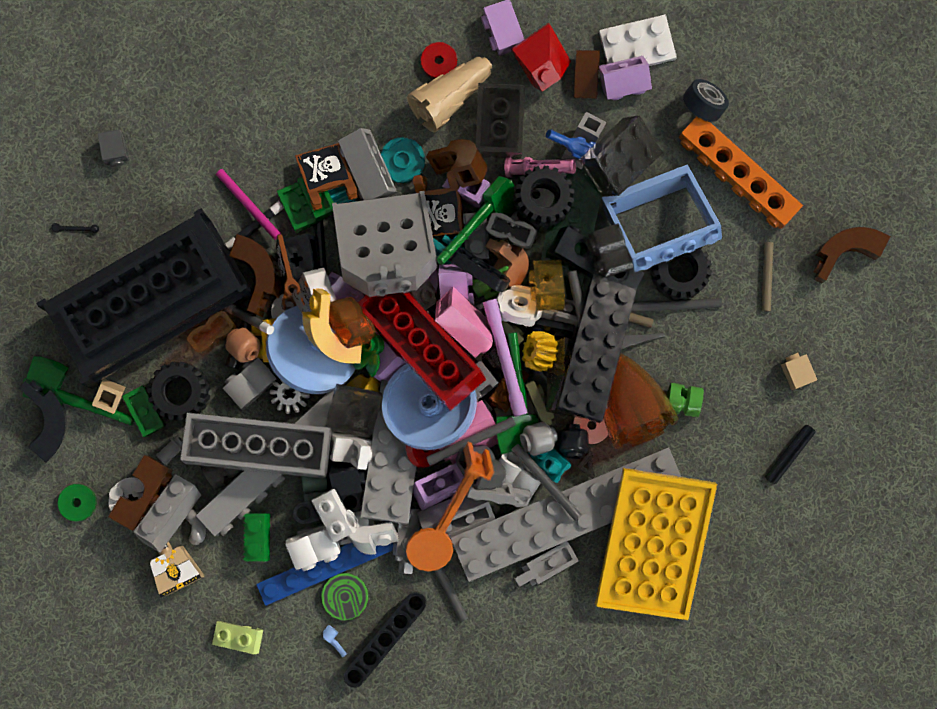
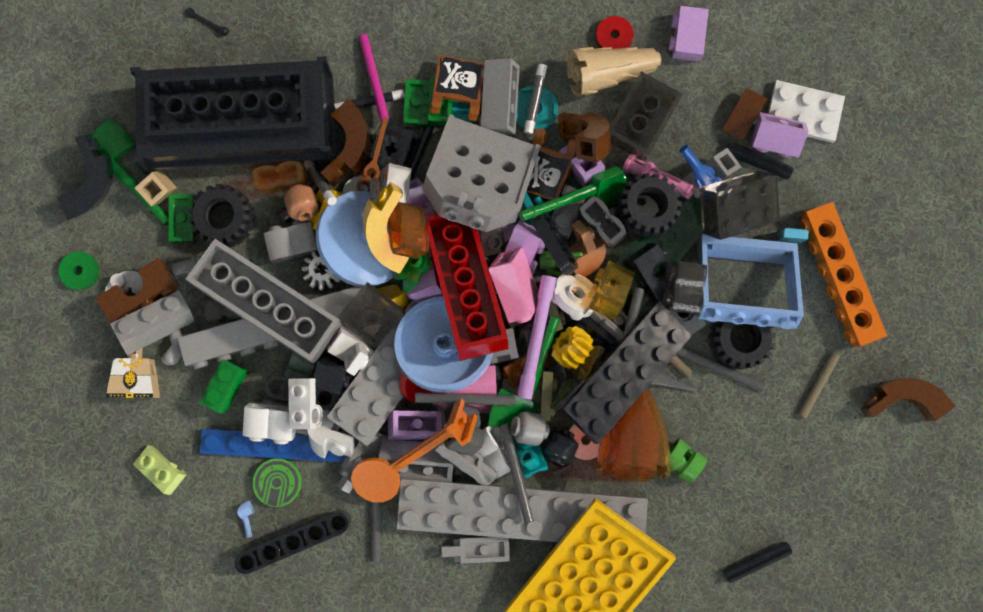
camera: 20 degrees right, 0 degrees up
(398, 151) = (535, 99): none -> dark grey bar
(542, 57) = (711, 78): red slope -> none
(620, 107) = (760, 161): none -> black axle
(681, 158) = (793, 235): none -> medium azure tile
(705, 100) = (844, 193): black wheel -> none
(798, 371) = (804, 488): tan brick -> none

